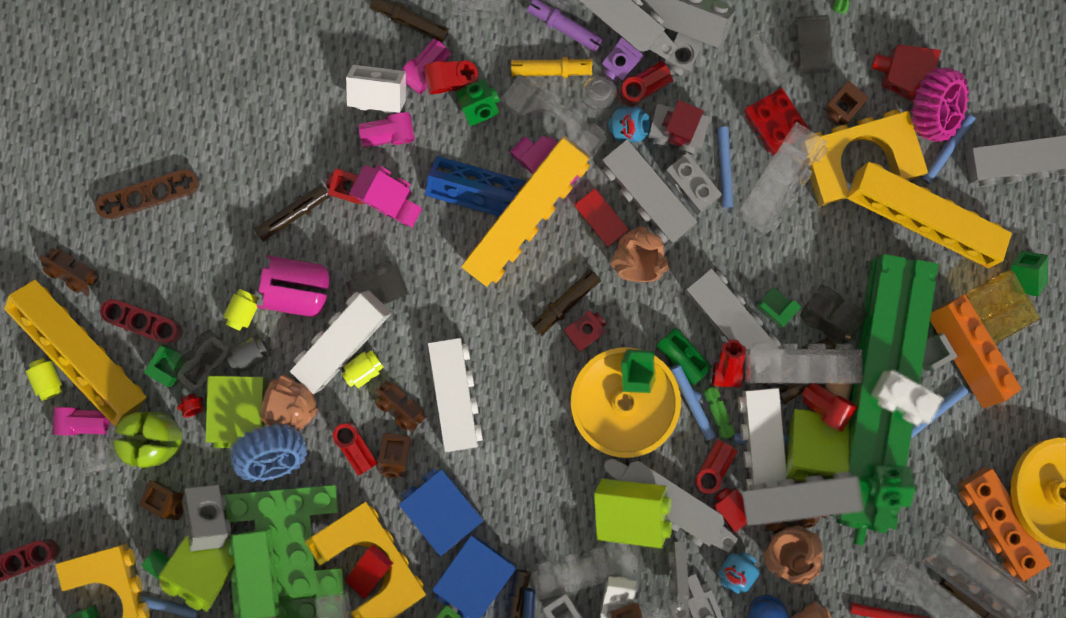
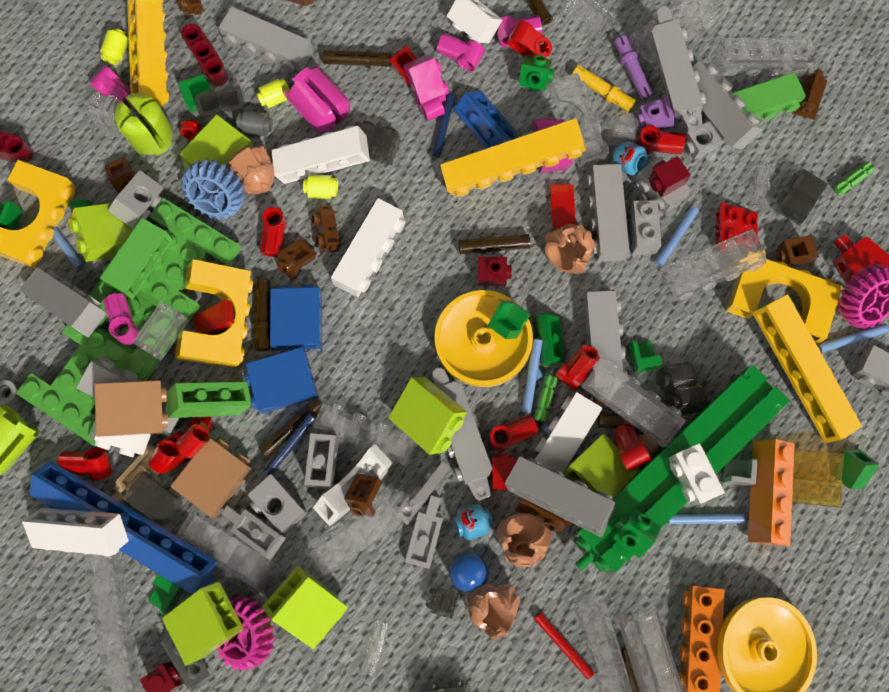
camera: 40 degrees right, 10 degrees down
(188, 261) = (265, 40): none -> light grey brick
(410, 535) = (262, 315): none -> dark brown pin
(428, 219) = (443, 124): none -> dark blue bar

